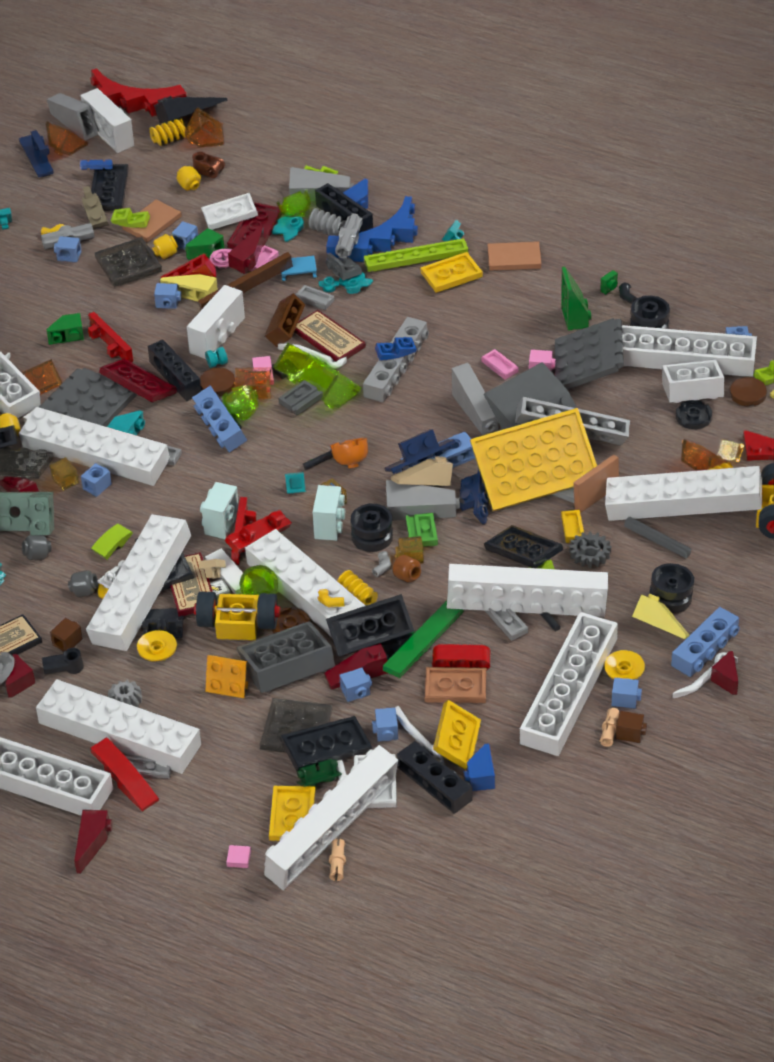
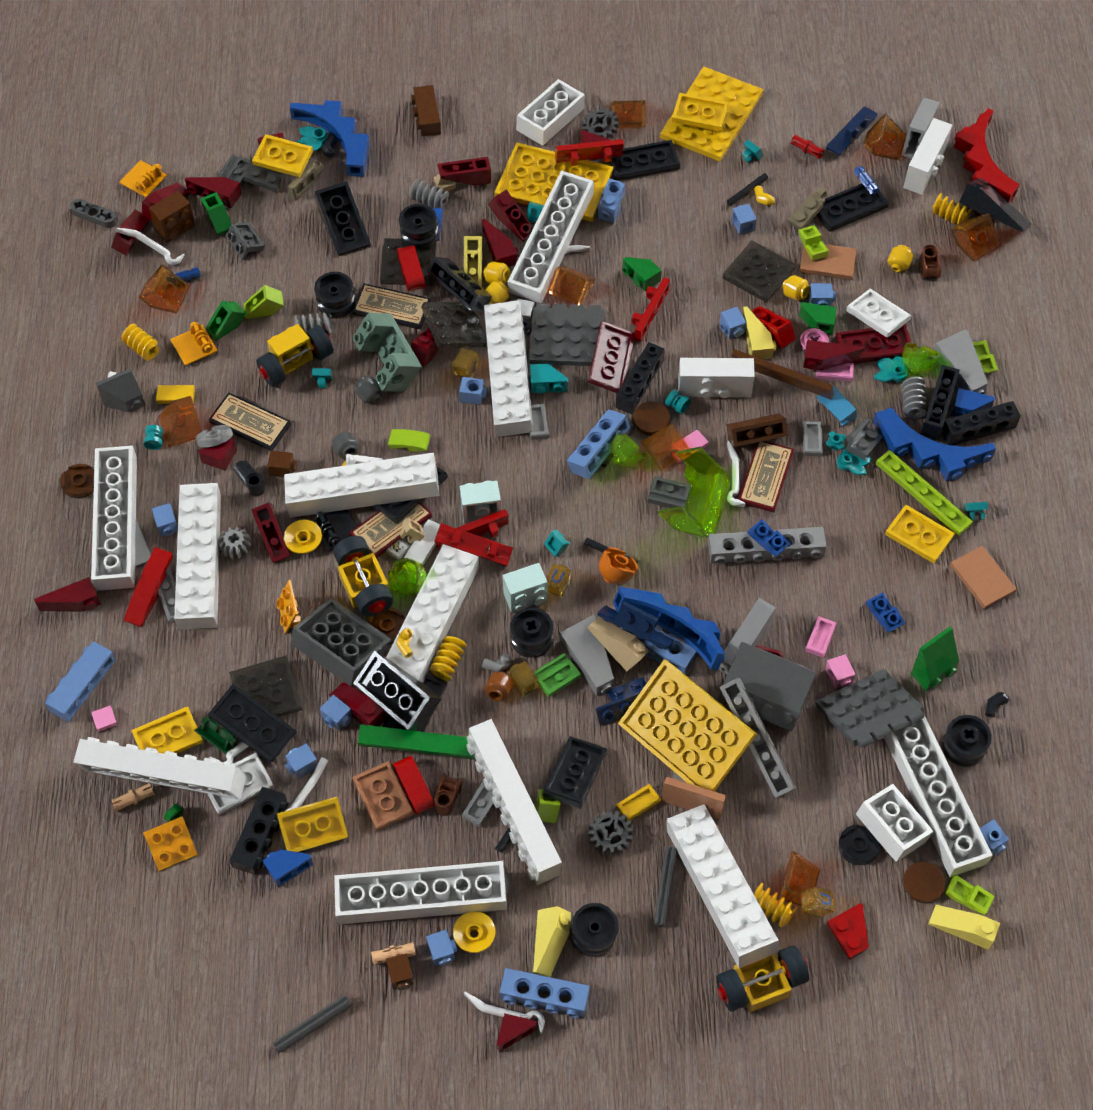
camera: 60 degrees right, 15 degrees up
(28, 185) = (807, 146): none -> red pin
(39, 247) = (747, 189): none -> black bar
(59, 738) = (165, 519): none -> medium blue brick
(83, 232) = (762, 209): light grey piece -> none
(132, 665) = (271, 531): none -> dark red slope
(187, 858) = (80, 681): none -> medium blue brick
(348, 236) = (896, 423): light grey piece -> none
(375, 833) = (174, 812): none -> green tile
(381, 195) = (980, 423): none -> black brick
(404, 845) = (170, 843): none -> light orange hinge
(444, 427) = (698, 633): none -> blue arch
(485, 636) = (448, 791): none -> copper piece
(510, 320) = (884, 613): none -> blue slope
(609, 282) = (997, 680): green plate -> none
(640, 805) = (311, 1024): none -> dark grey axle

